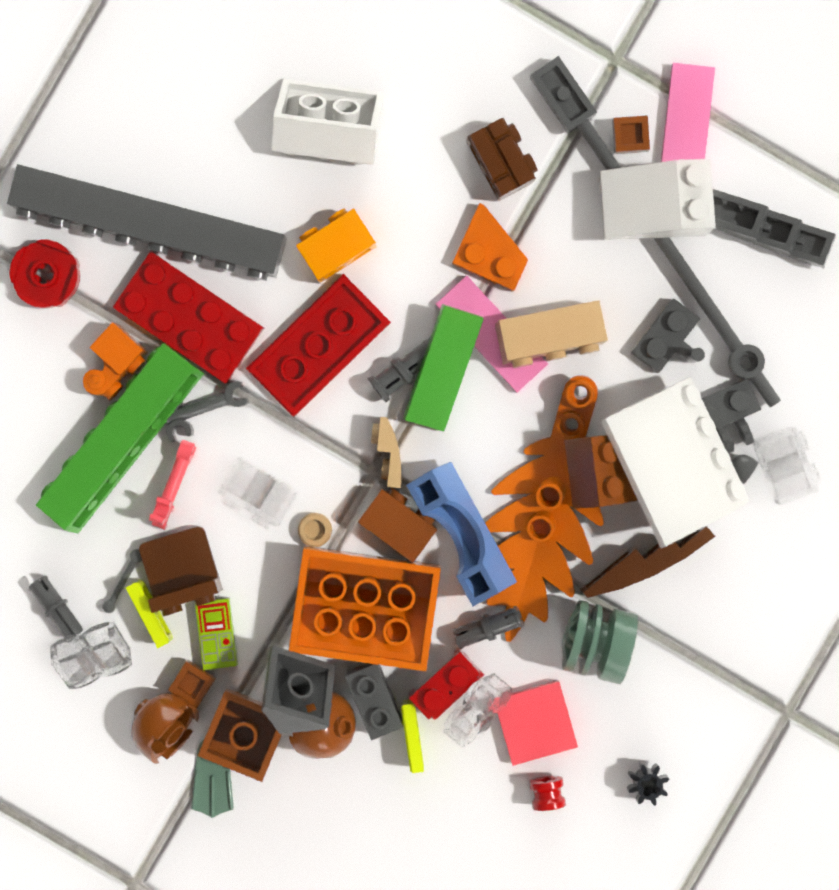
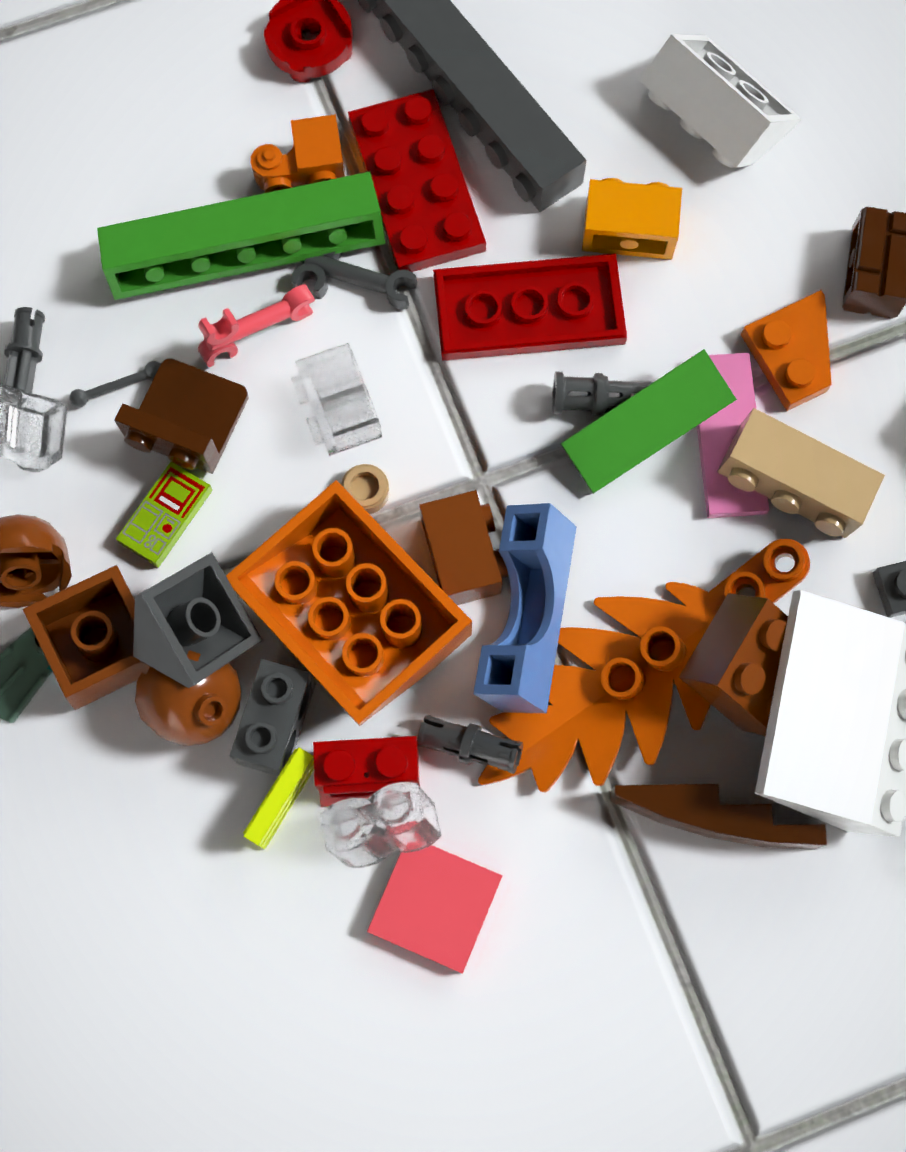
camera: 40 degrees right, 15 degrees down
(154, 621) = (109, 442): neon yellow tile -> none
(192, 683) = (91, 544): dark orange plate -> none
(386, 441) = (519, 456): tan slope -> none
(547, 793) = (381, 1000): red wheel -> none
(601, 642) = (589, 858): sand green wheel -> none
(646, 774) = (527, 1094): black gear -> none

